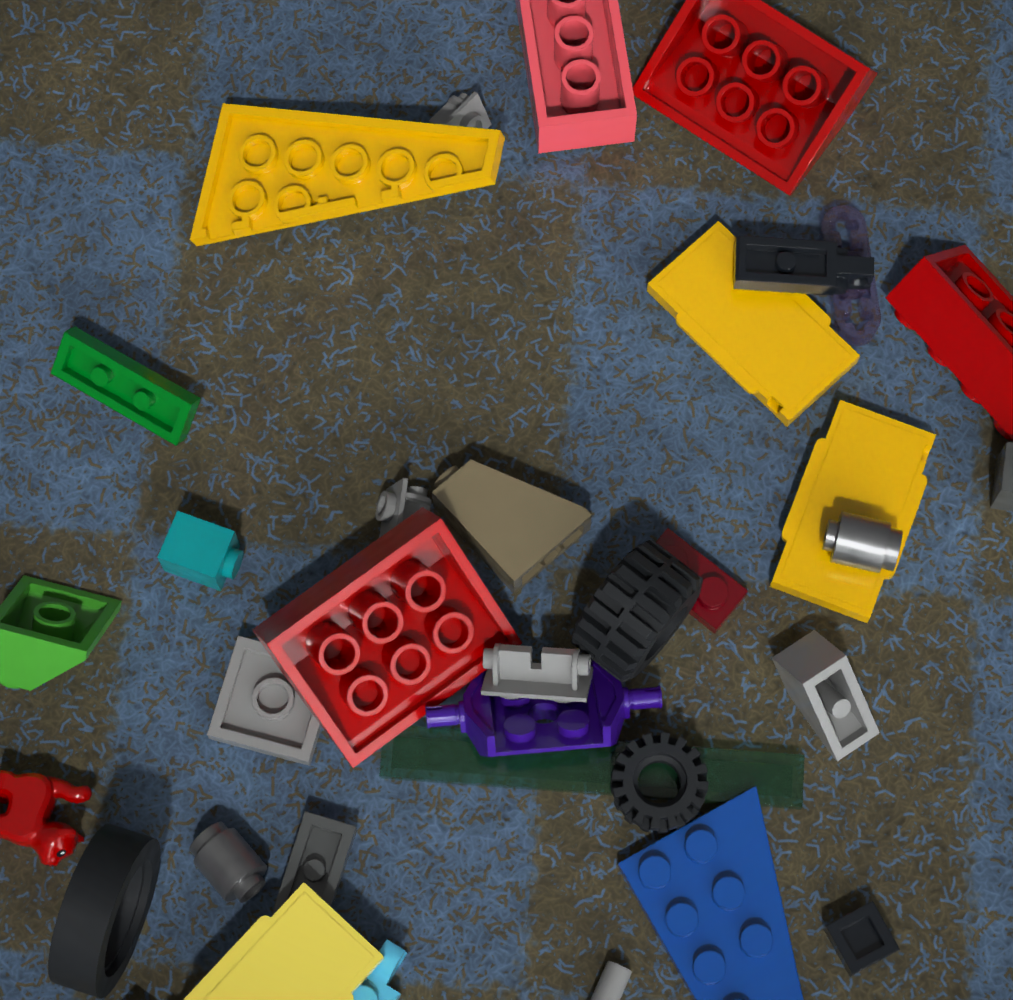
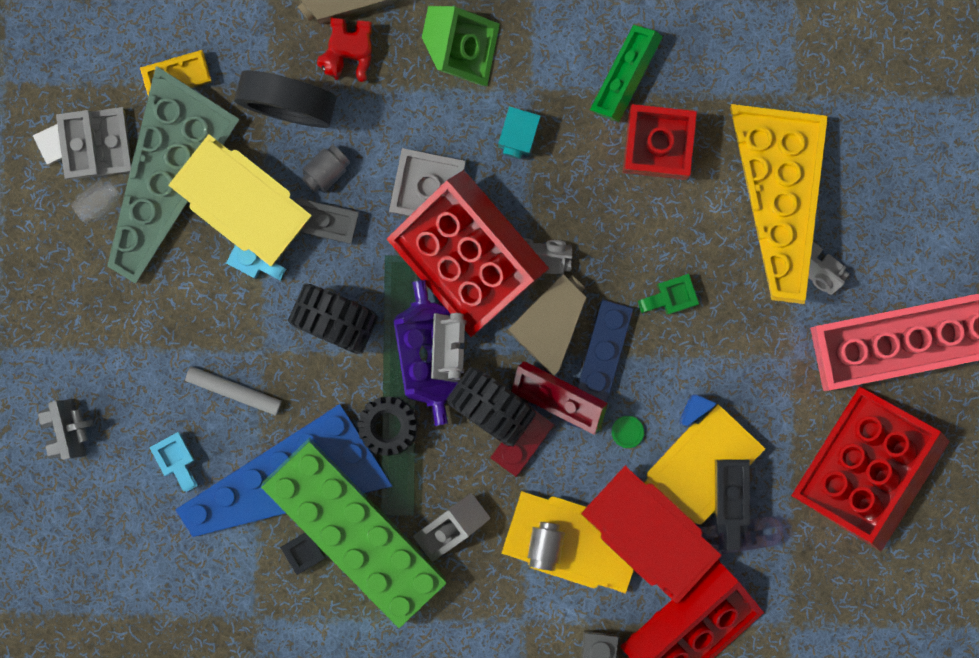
camera: 75 degrees right, 15 degrees up
(237, 339) = (659, 142): none -> red brick
(476, 339) = (673, 295): none -> green plate
(478, 856) = (333, 318): none -> black tyre
(579, 456) = (604, 350): none -> dark blue plate
(627, 507) = (559, 397): none -> dark red plate
(654, 318) = (694, 409): none -> blue slope
(683, 423) = (627, 431): none -> green piece
(830, 847) = (353, 532): none -> bright green brick
(845, 387) = (650, 534): none -> red piece

